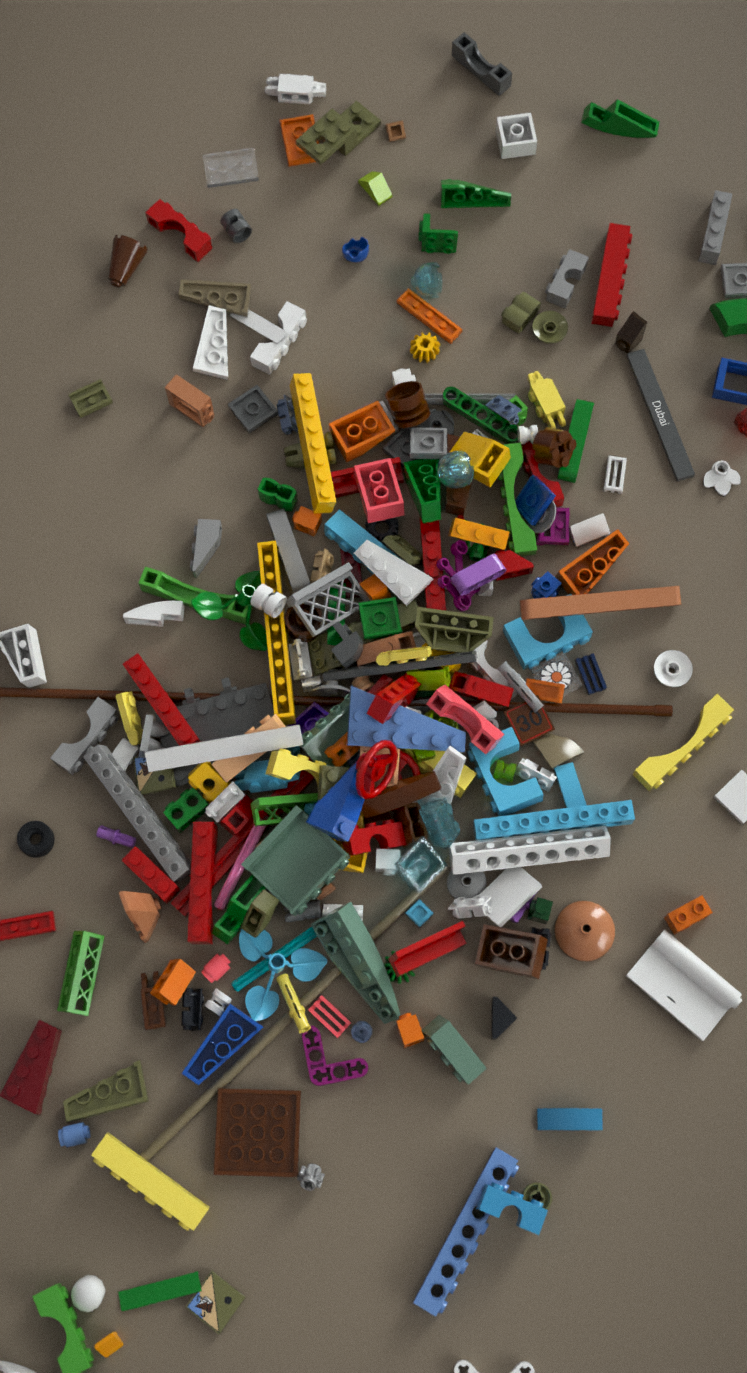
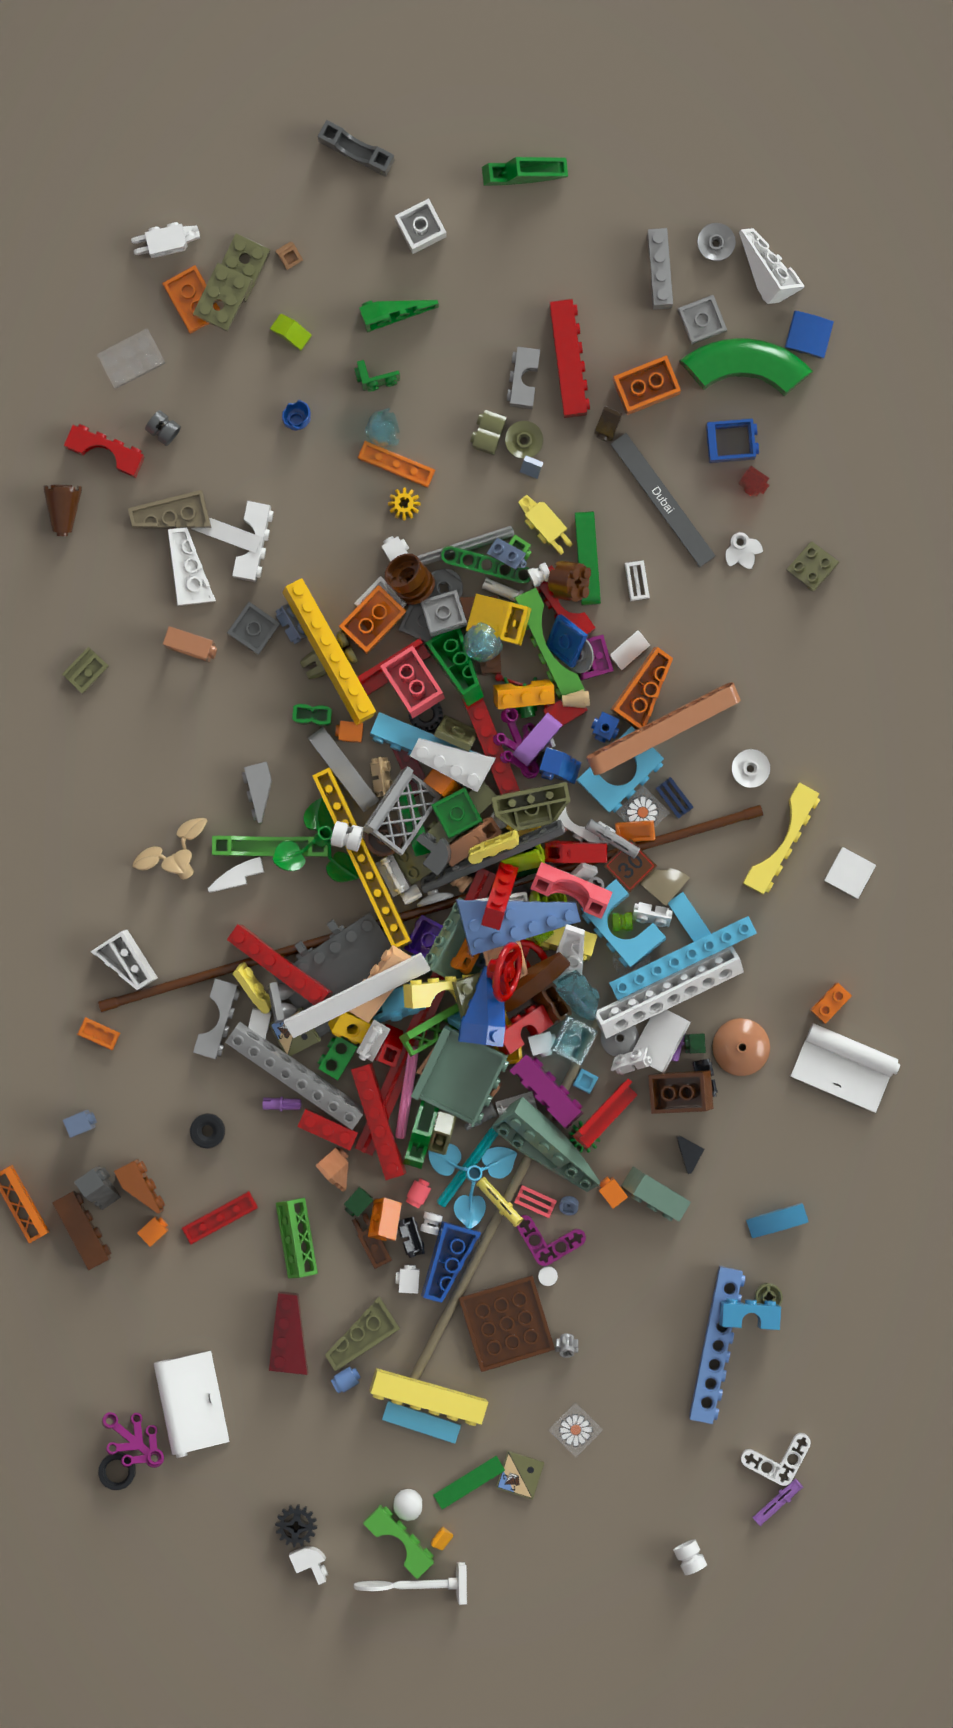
camera: 20 degrees left, 15 degrees up
(107, 586) = (178, 862): none -> tan plant
(134, 1208) = (421, 1422): none -> medium azure tile
(153, 956) = (358, 1202): none -> dark green brick
(174, 1052) = (408, 1279): none -> white brick
(290, 1273) = (575, 1429): none -> clear tile
(316, 1097) = (547, 1276): none -> white tile
(377, 906) = (547, 1091): none -> magenta wedge
(489, 601) = (559, 766): none -> blue wedge
(527, 552) = (576, 699): none -> tan cone
(549, 351) = (531, 467): none -> sand blue tile
(675, 313) = (646, 385): none -> orange brick

